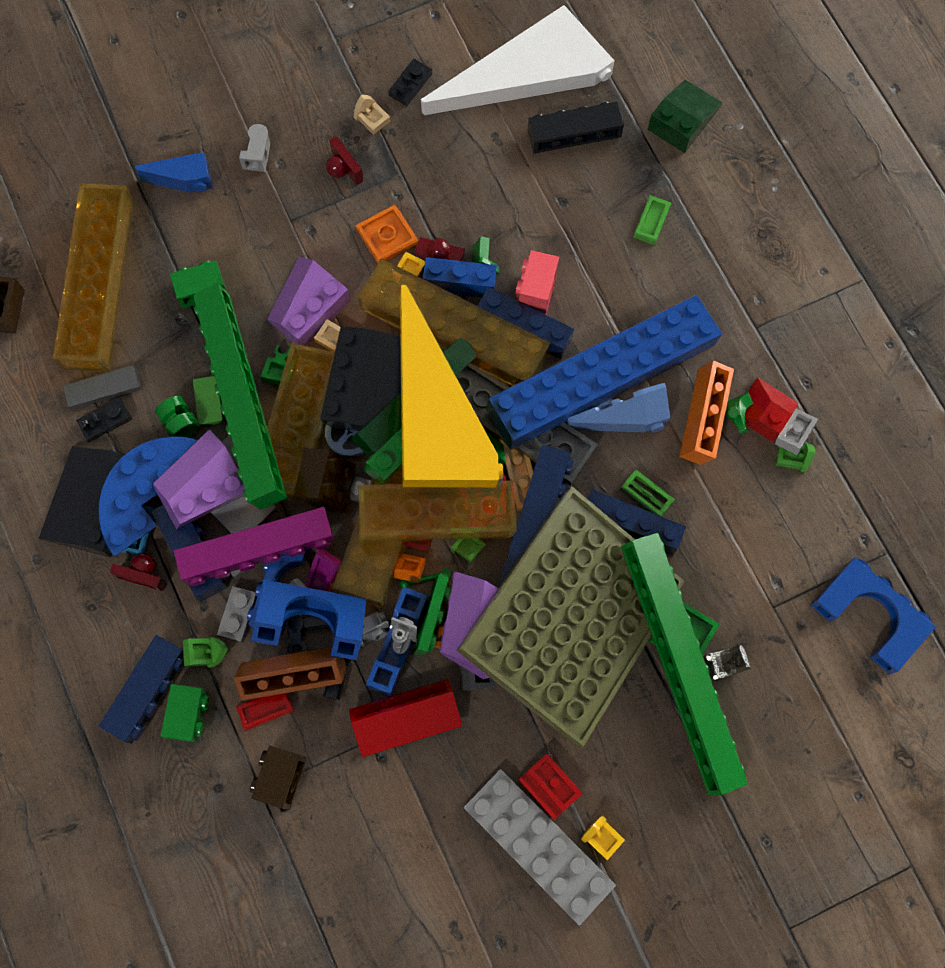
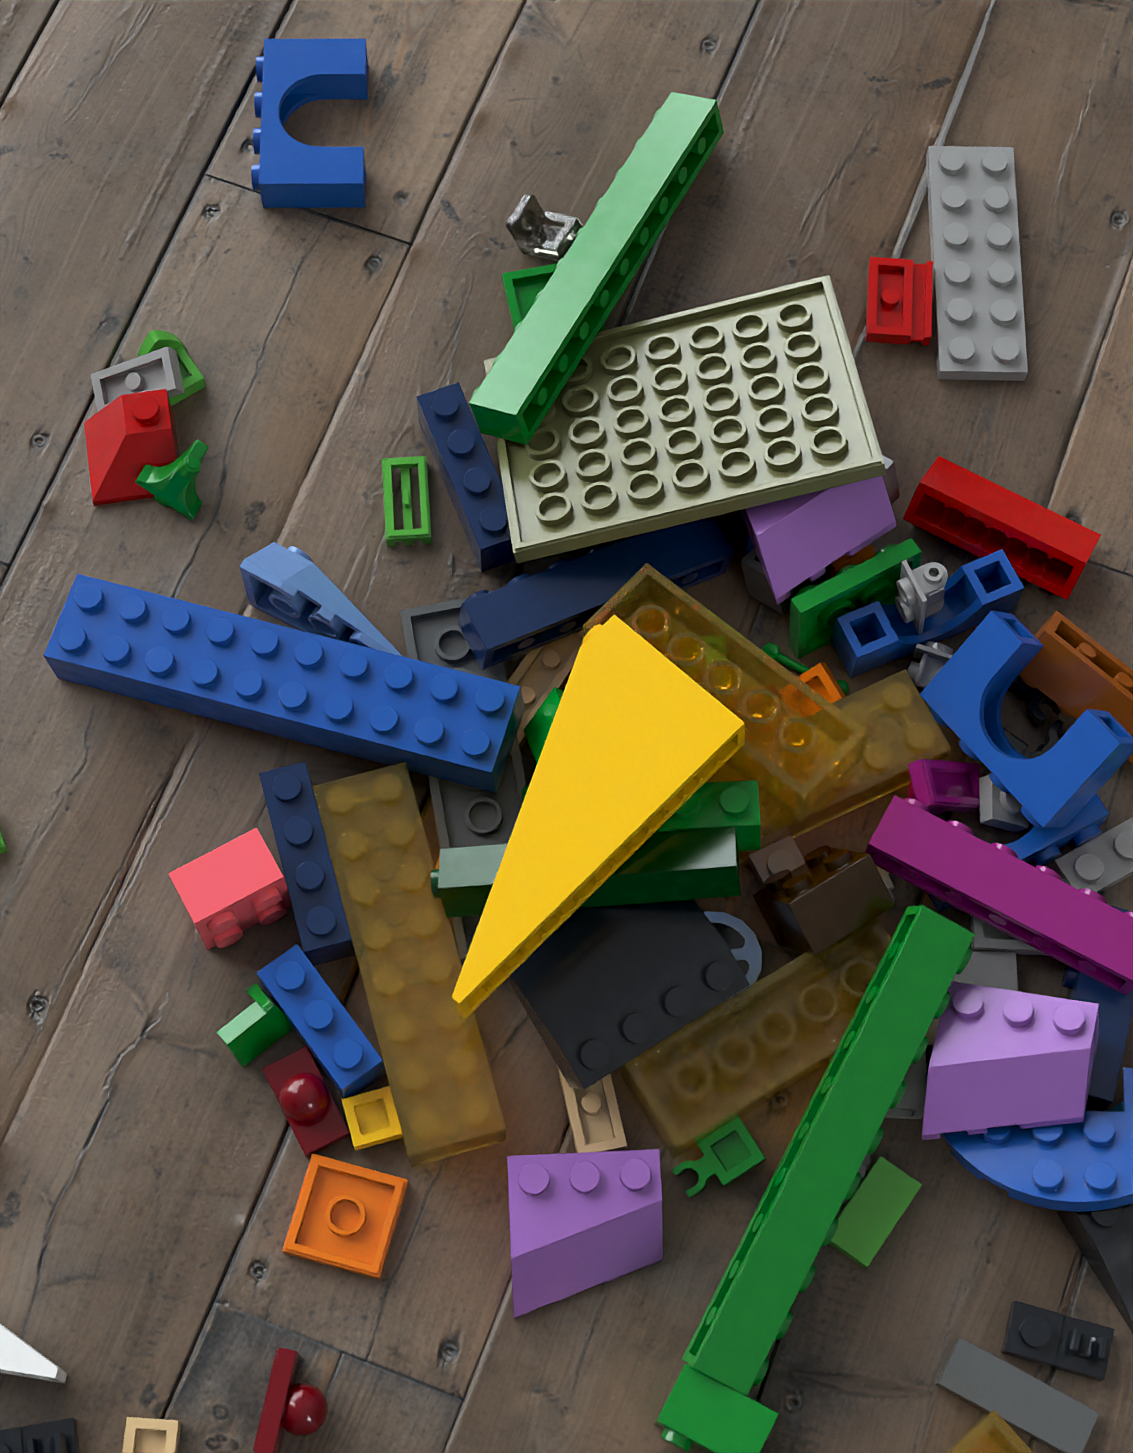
camera: 135 degrees left, 5 degrees down
(177, 418) = (948, 1218): green wheel -> none
(602, 837) = (891, 204): yellow tile -> none
(706, 413) = (218, 507): orange brick -> none

